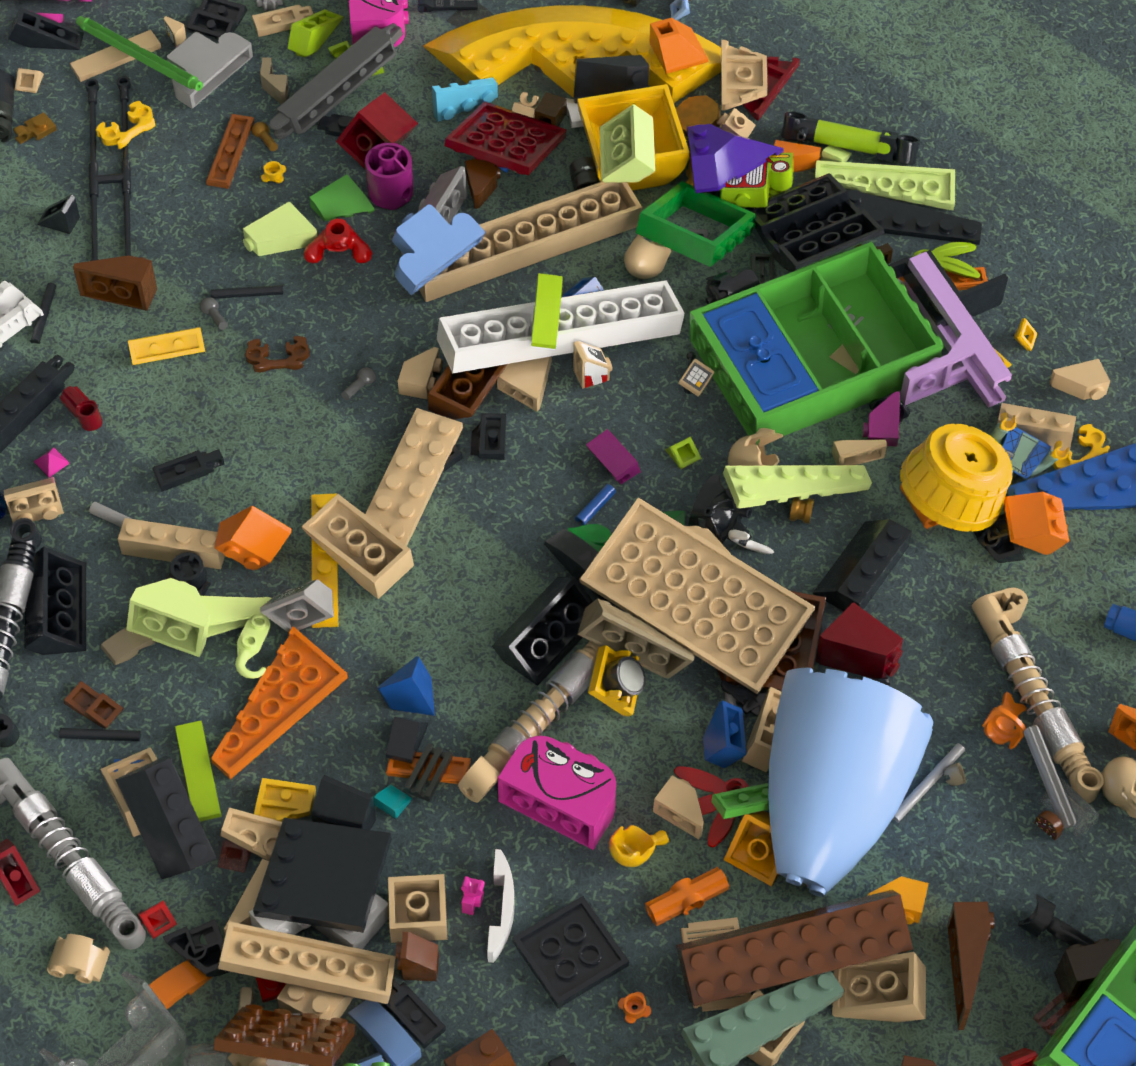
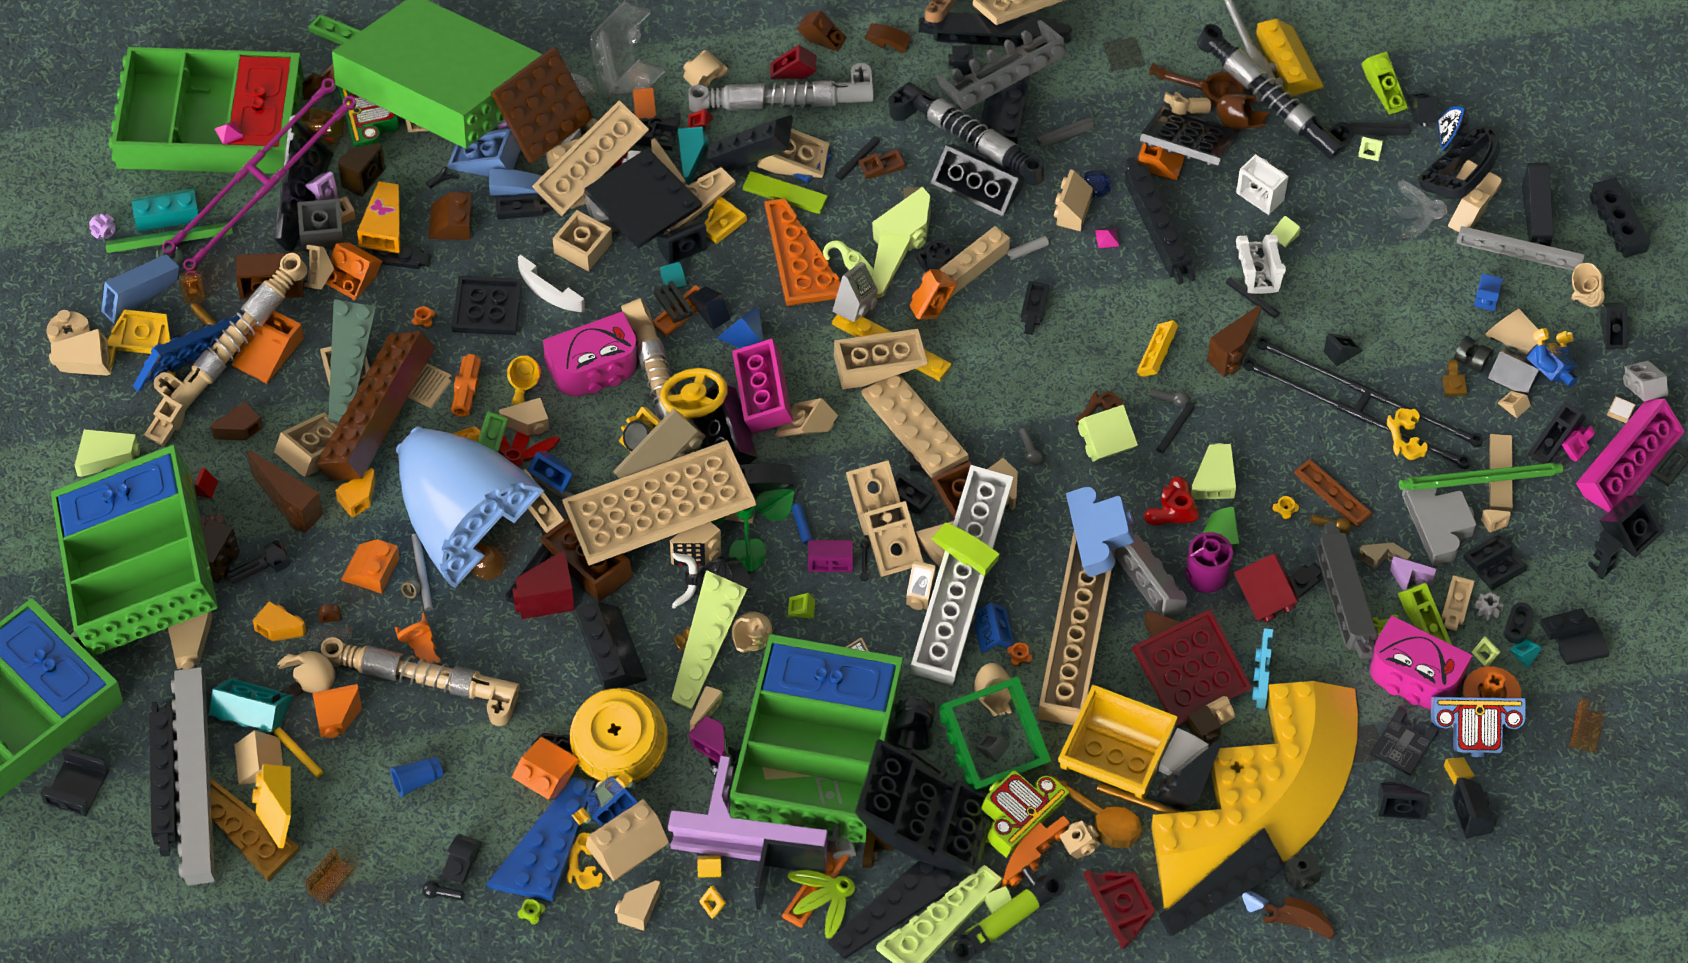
camera: 125 degrees right, 0 degrees up
(82, 408) = (1132, 272): dark red piece -> none
(212, 889) = (692, 150): none -> teal slope
(282, 59) = (1407, 570): none -> lavender slope
(303, 320) = (1107, 433): none -> yellowish green brick
(417, 958) = (548, 219): reddish brown slope -> none
(472, 895) = (567, 275): dark pink plate -> none
(474, 618) = (762, 386): none -> dark pink brick
(482, 567) = (808, 418): none -> tan slope
(542, 430) = (884, 518): none -> tan bracket
(542, 654) = (692, 398): none -> yellow piece
(574, 445) = (864, 545): none -> black hinge
(588, 264) = (1019, 648): none -> orange plate
(627, 146) = (1088, 707): yellowish green slope -> none
(641, 15) = (1237, 874): none -> black wing
(675, 45) = (1185, 830): orange slope -> none
(723, 156) = (1051, 793): dark purple wedge -> none
(741, 76) = (1132, 880): tan wing -> none
(966, 826) = (372, 565): none -> orange slope
(1049, 776) = (356, 629): light grey axle -> none
(1106, 860) = (278, 624): none -> light orange slope

